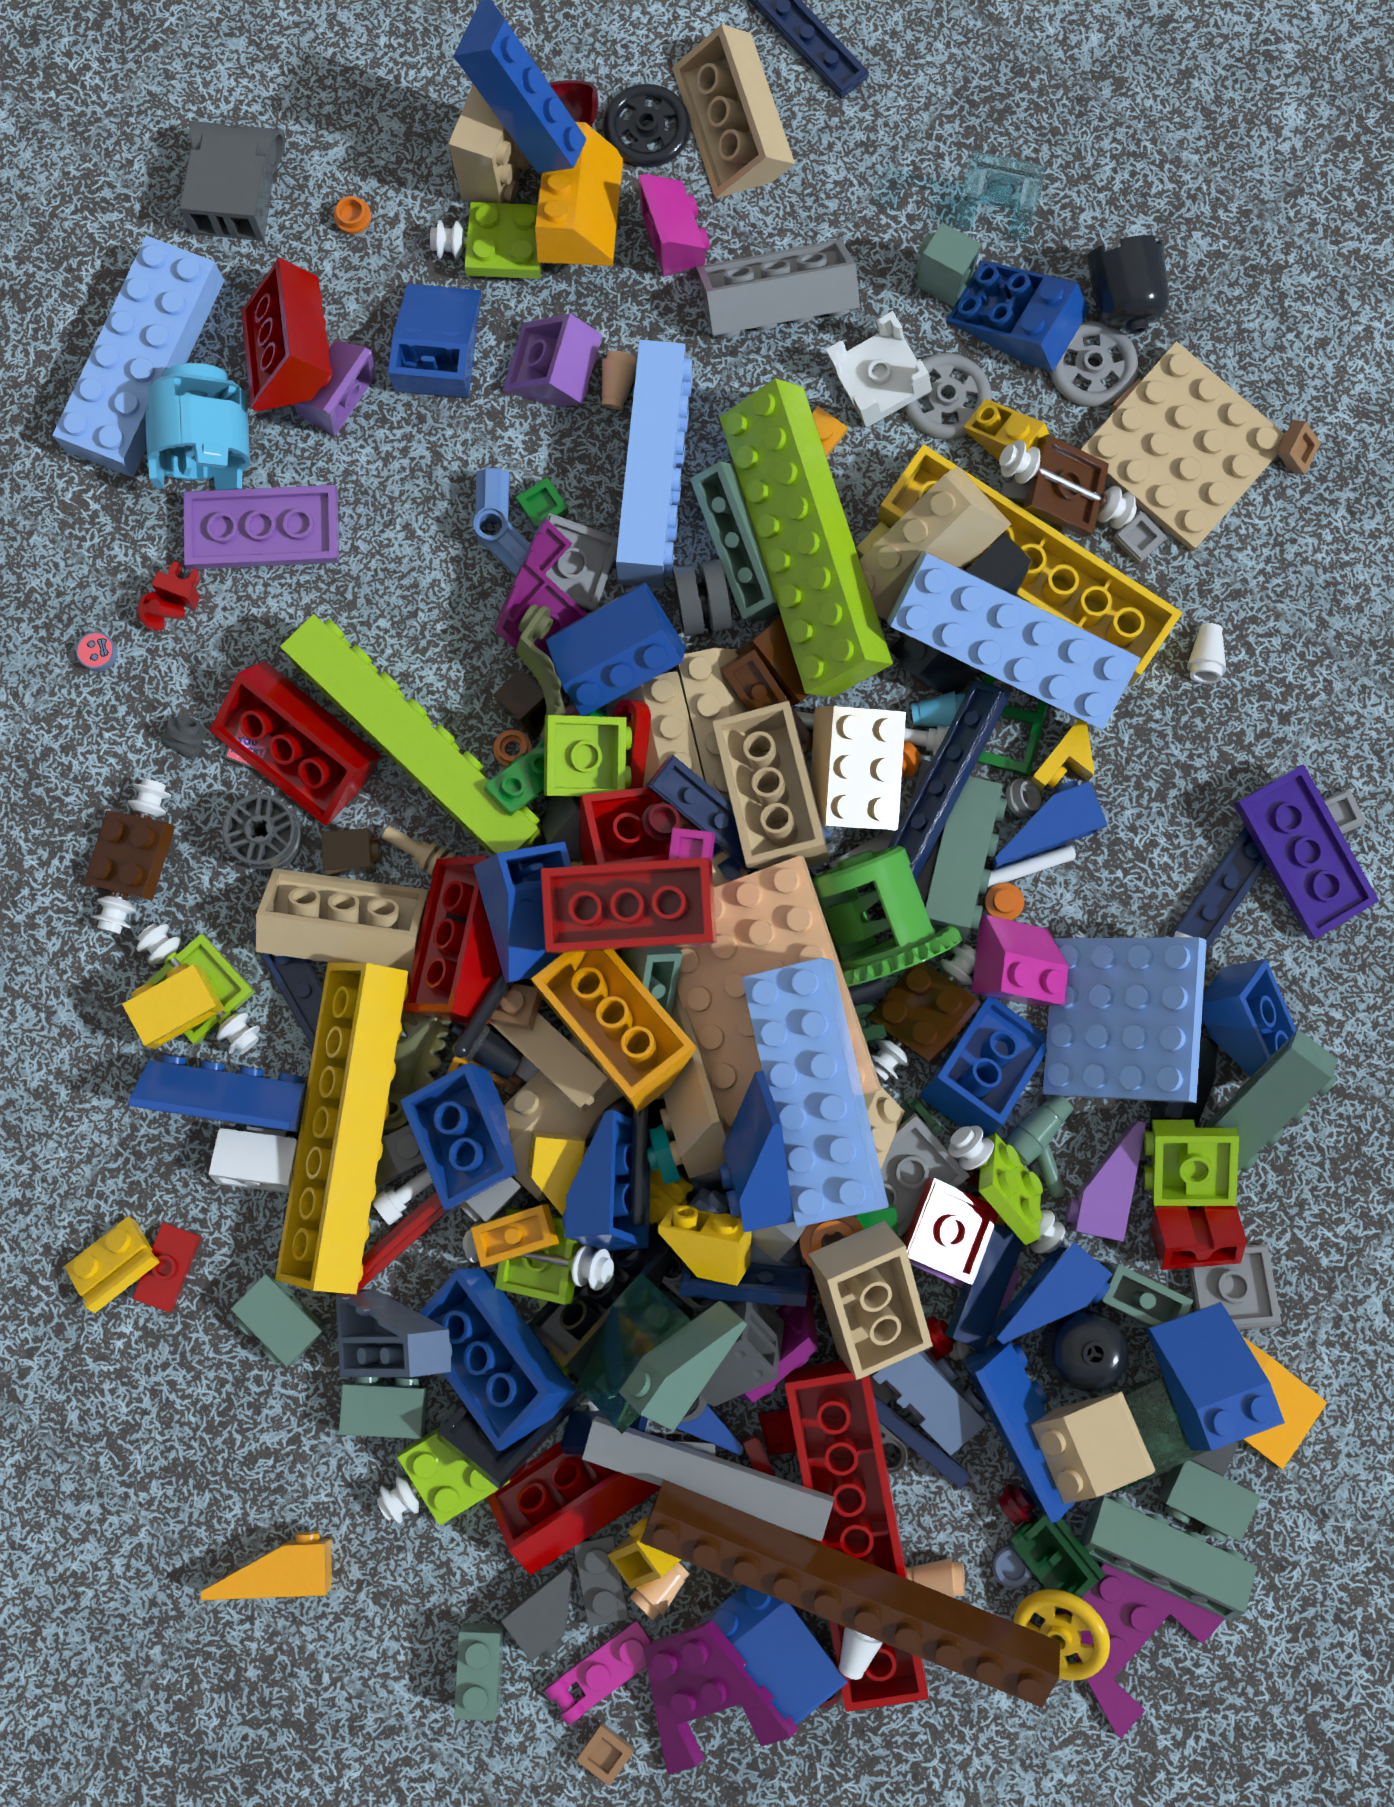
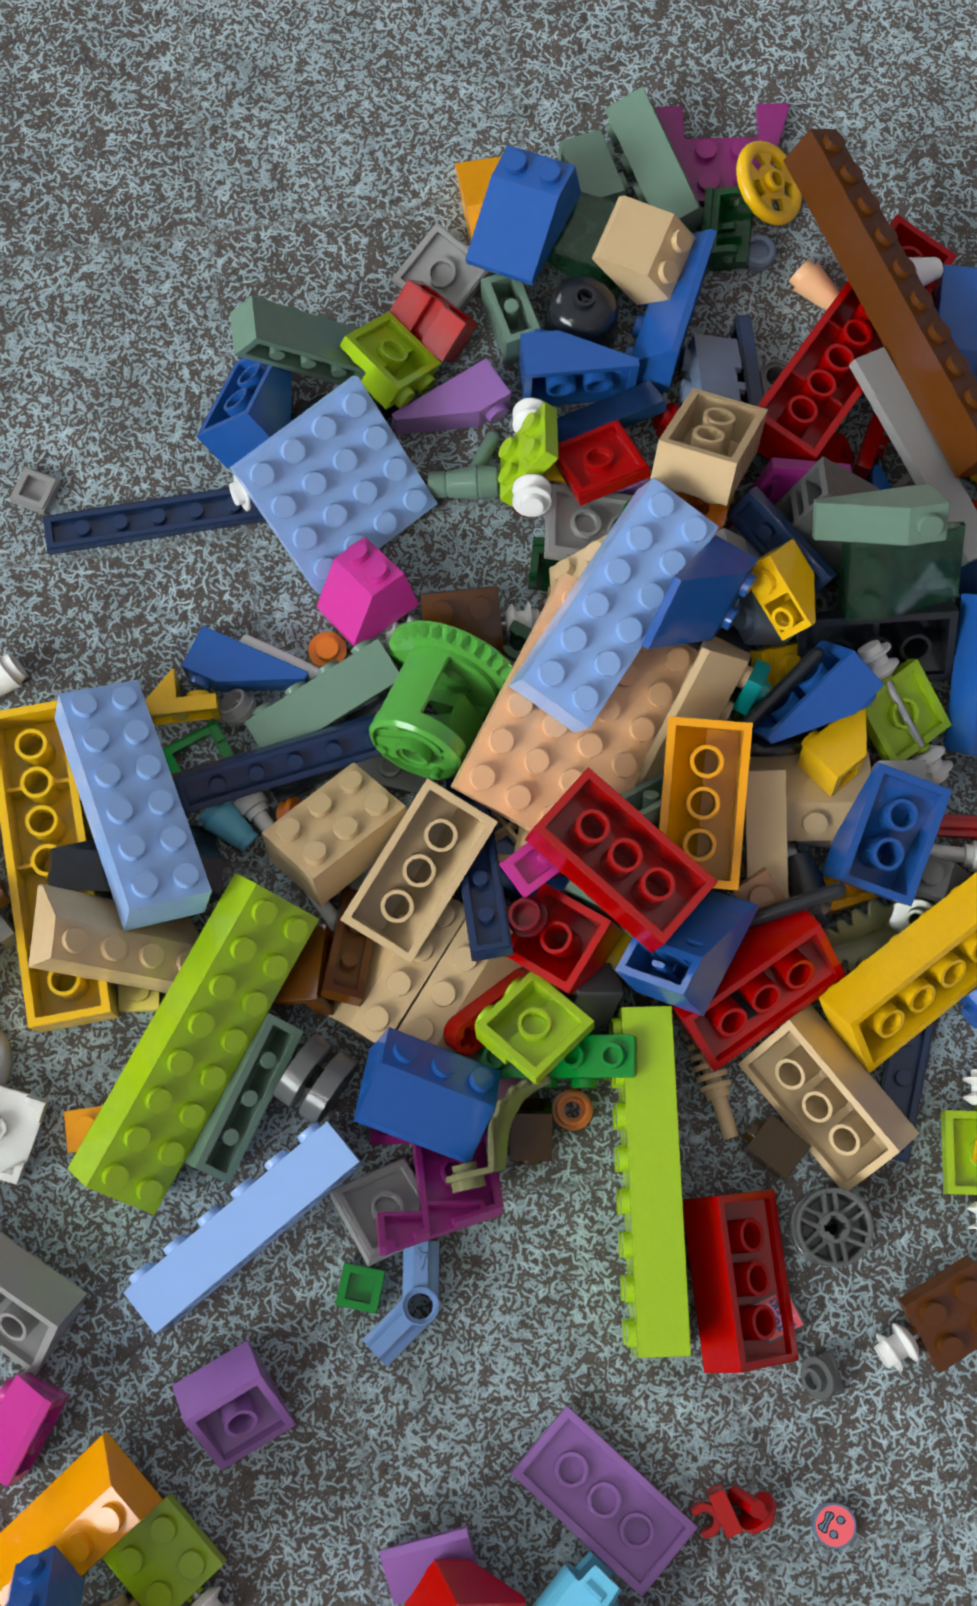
camera: 140 degrees left, 5 degrees down
(435, 341) = (306, 1526): blue slope -> none
(514, 1235) = (910, 735): light orange plate -> none
(617, 378) = (197, 1336): light nougat cone -> none
(986, 1068) = (461, 549): blue slope -> none
(1016, 1504) = (719, 280): dark red plate -> none
(1306, 852) = (87, 483): dark purple plate -> none

